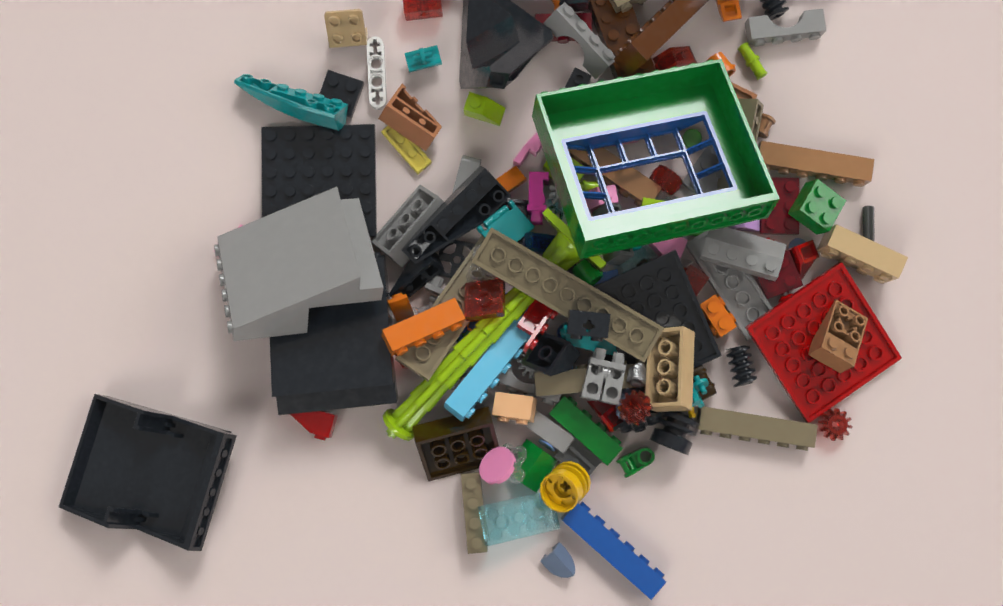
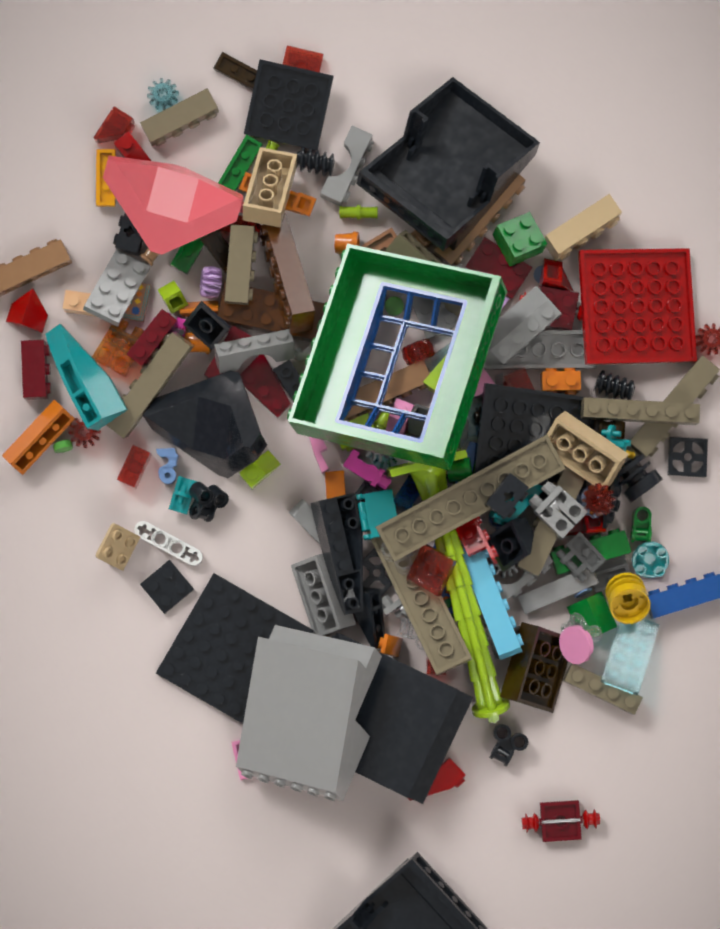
camera: 60 degrees left, 0 degrees up
(296, 102) = (153, 630): teal wedge -> none
(339, 544) = (560, 821): none -> dark red plate
(375, 458) = (506, 745): none -> black piece
(408, 150) = (250, 557): light yellow tile -> none
(410, 119) = (230, 539): nougat wedge -> none
(423, 327) = (424, 635): orange brick -> none
(427, 81) = (206, 501): none -> black piece
(435, 35) = (166, 472): none -> medium blue leg
(514, 407) = (536, 600): light nougat brick -> none
(558, 67) = (264, 386): none -> dark red wing
(559, 562) = (687, 642): sand blue brick -> none
(582, 424) = (586, 554): none -> dark grey plate
(611, 486) = (650, 560): none -> teal dish
(637, 375) = (572, 481): flat silver arm -> none
(674, 57) = (318, 278): clear red slope -> none
(735, 399) = (640, 411): none -> dark tan brick
(740, 471) = (703, 443): none -> black piece
(839, 337) = (641, 292): medium nougat slope -> none
(844, 108) = (449, 164): none -> black panel
(868, 222) = (559, 203): dark grey axle -> none

